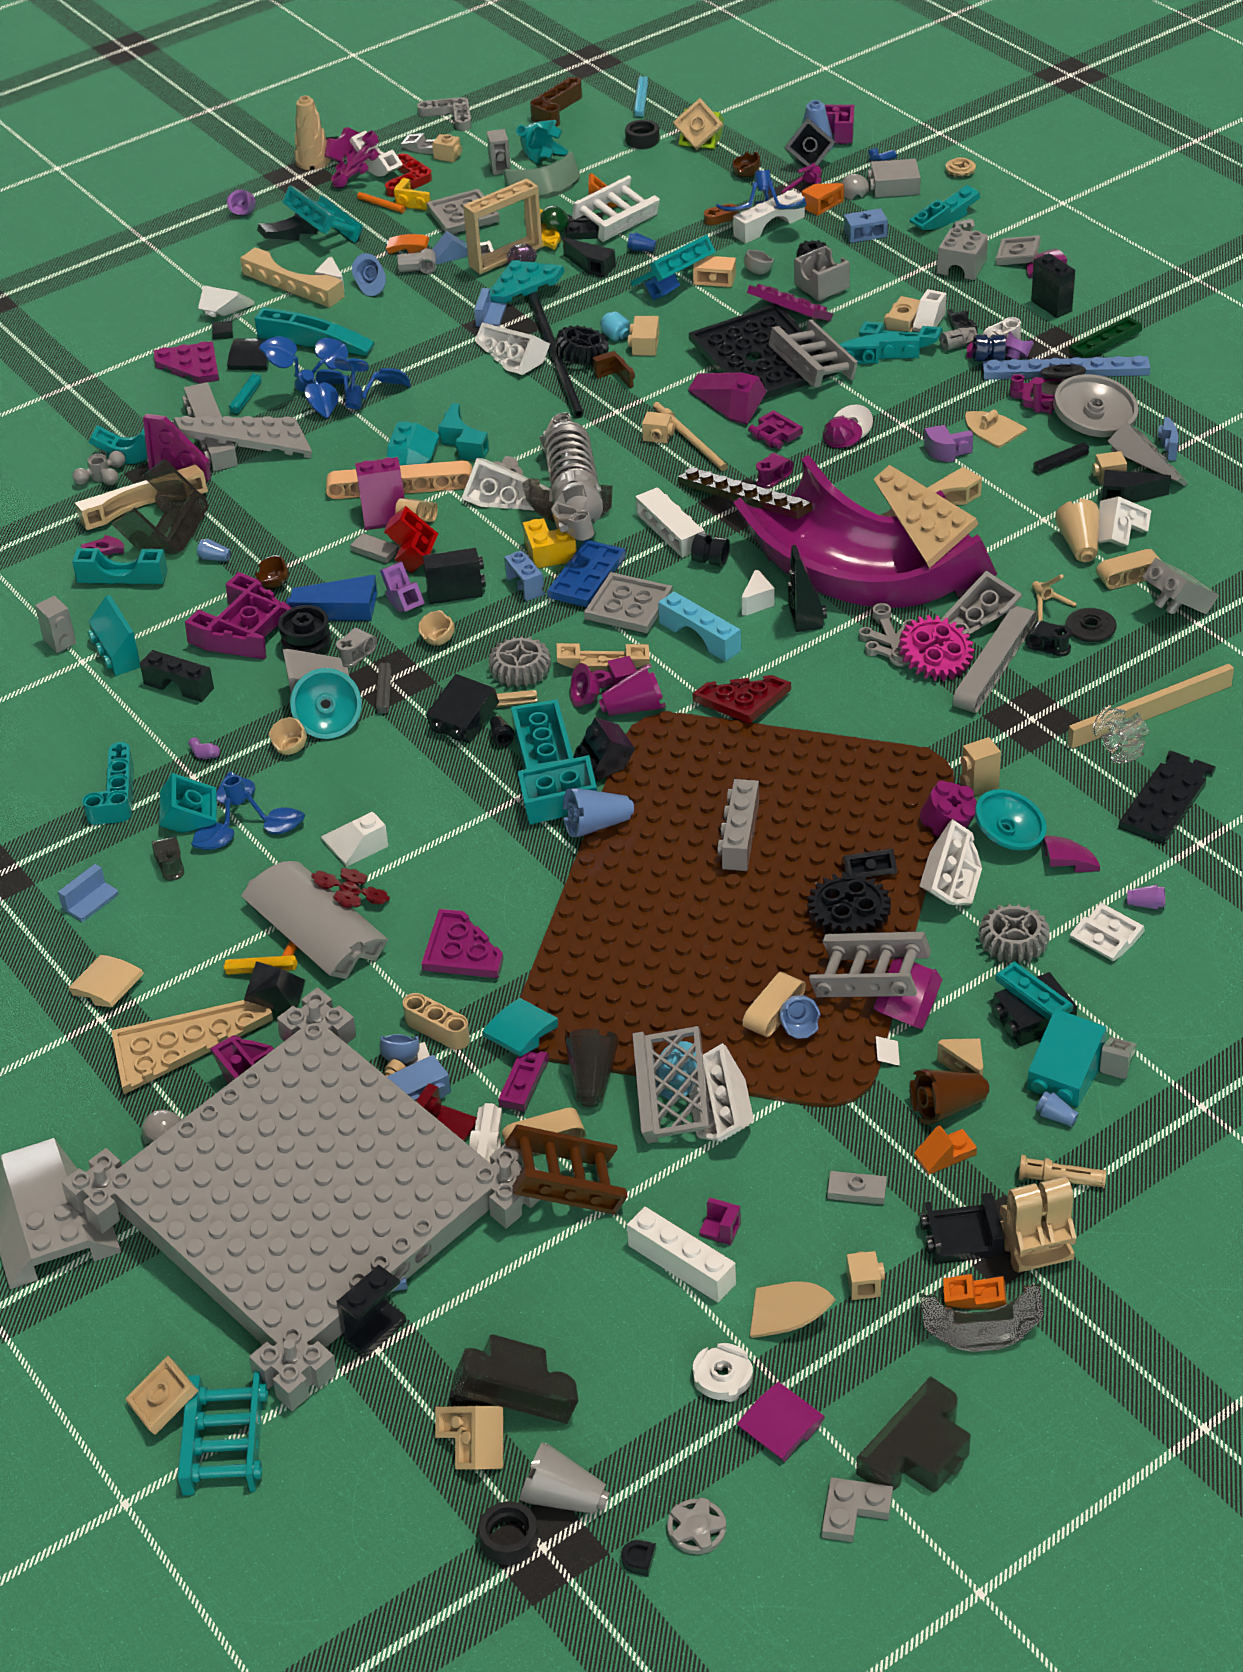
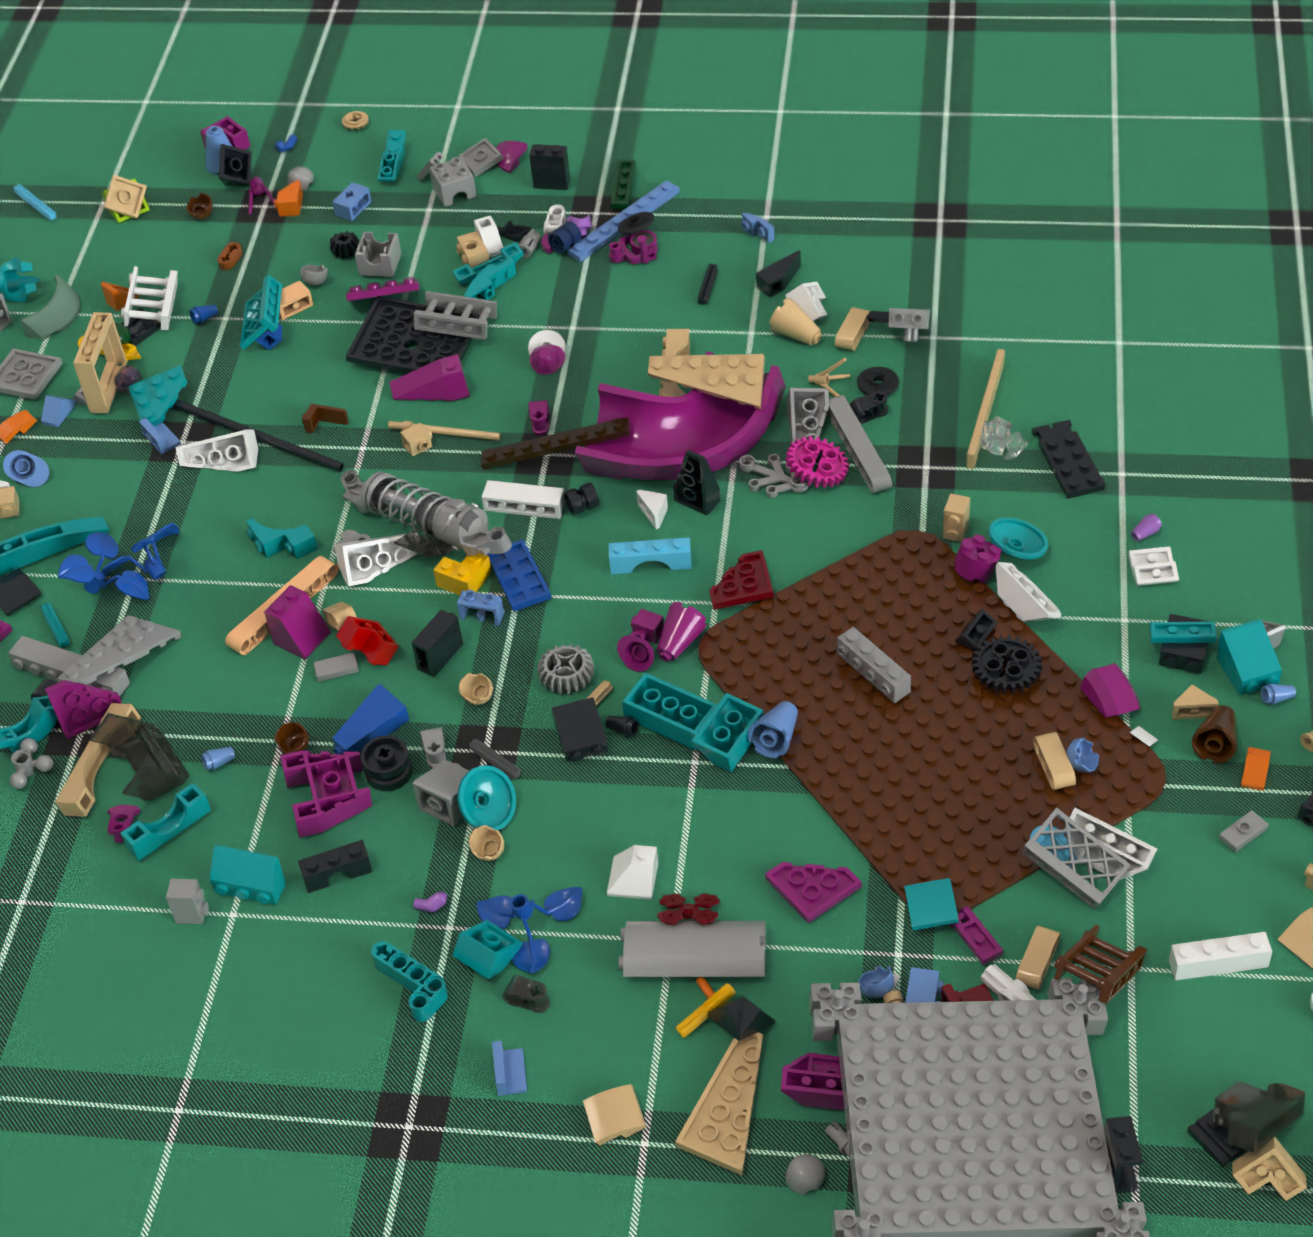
camera: 45 degrees left, 5 degrees up
(399, 590) = (410, 684): medium lavender brick -> none
(412, 444) = (256, 575): teal wedge -> none
(417, 262) = (49, 431): light grey piece -> none
(436, 1021) = (863, 954): tan beam -> none
(571, 656) = (616, 626): tan slope -> none
(580, 344) = (276, 416): black gear -> none
(590, 257) = (179, 347): black slope -> none
(590, 1063) = (1011, 889): clear smoke cone -> none
(606, 746) = (715, 679): black slope -> none
(615, 326) = (278, 386): medium azure head -> none
(627, 602) = (576, 574): light grey plate -> none
(642, 134) = (81, 238): black tyre -> none
(644, 335) = (309, 379): tan brick -> none
(721, 1221) = (1209, 917): magenta panel -> none
(751, 222) = (268, 246): white arch -> none
(763, 182) = (254, 213): blue plant -> none
(779, 427) = (498, 382): magenta plate -> none
(867, 947) = (1070, 673): light grey fence -> none
(894, 178) = (323, 154): light grey brick -> none
(945, 446) = (623, 323): medium lavender brick -> none
(993, 427) = (633, 291): tan shield -> none
(1014, 931) = (1111, 607): light grey gear -> none
(1066, 852) = (1067, 535): magenta brick -> none
(1094, 405) = (687, 233): light grey dish -> none
(1108, 461) = (747, 269): tan brick -> none
(1141, 450) = (751, 246): light grey wedge -> none

